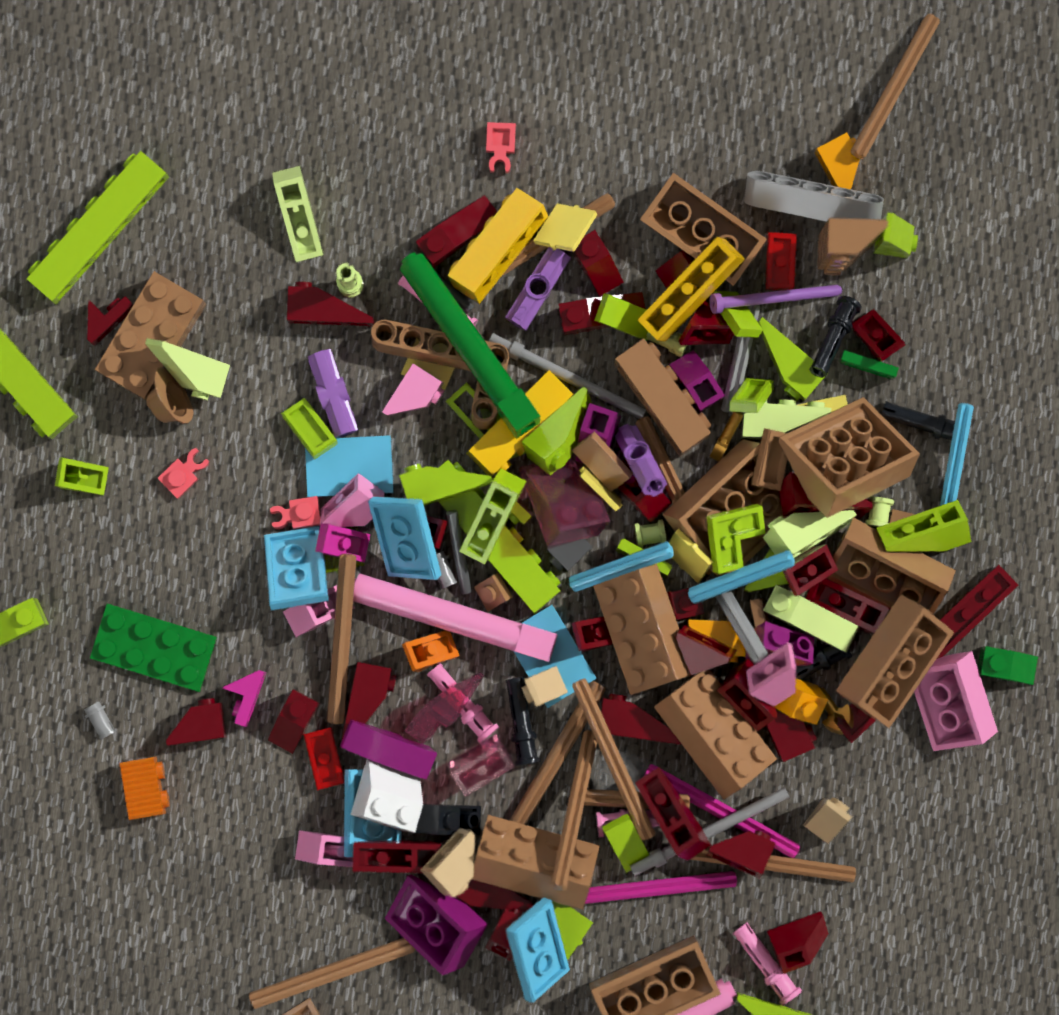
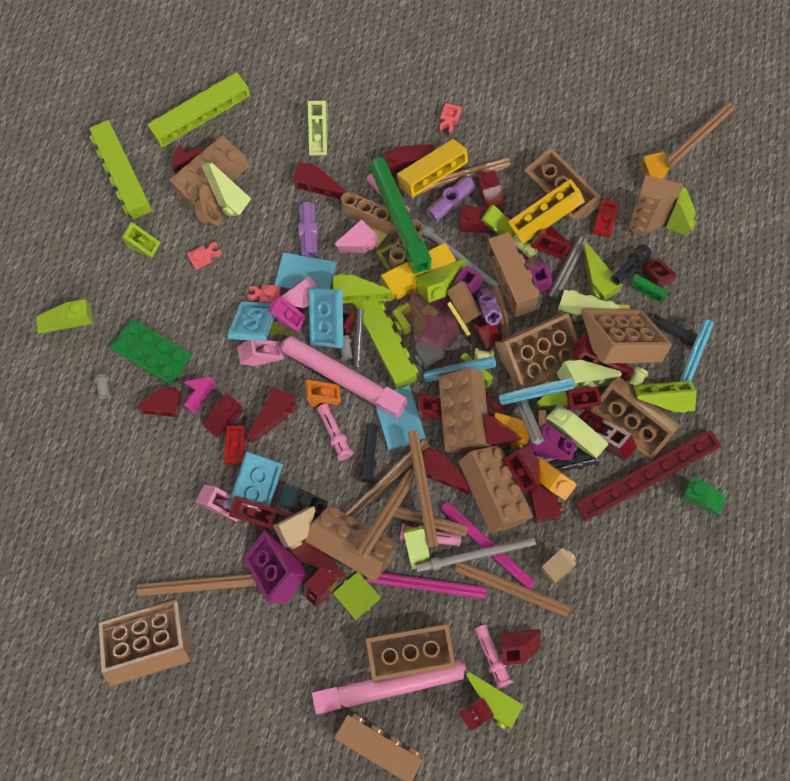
camera: 20 degrees right, 15 degrees down
(144, 788) = (114, 433): orange brick -> none
(309, 428) = (288, 246): lime tile -> none
(341, 638) = (268, 371): medium nougat axle -> none
(346, 281) = (336, 166): yellowish green pin -> none
(388, 797) = (267, 476): white slope -> none
(389, 749) = (277, 446): magenta slope -> none
(443, 709) = (320, 428): clear pink slope -> none
(480, 765) = (334, 472): clear pink brick -> none
(492, 516) = (385, 316): lime slope -> none
(493, 592) = (373, 368): medium nougat plate -> none
(538, 950) = (336, 601): medium azure tile -> none
(544, 686) = (389, 430): tan slope -> none
(565, 227) = (476, 167): light yellow piece -> none
(672, 815) = (453, 534): dark red slope -> none
(689, 556) = (505, 373): light yellow piece -> none
(718, 303) = (561, 225): medium lavender bar -> none
(726, 436) = (543, 314): pearl gold bar -> none
(726, 533) = (533, 361): lime plate -> none
(740, 319) = (571, 238): lime tile -> none
(745, 852) = (495, 573): dark red slope -> none
(751, 395) = (569, 286): lime tile -> none
(770, 461) = (572, 326): medium nougat tile -> none
(774, 676) = (544, 455): bright pink slope -> none
(809, 198) = (617, 178): light grey beam -> none
(835, 712) = (585, 498): pearl gold bar -> none
(895, 661) = (628, 468): medium nougat brick -> none
(955, 703) = (661, 509): bright pink slope -> none

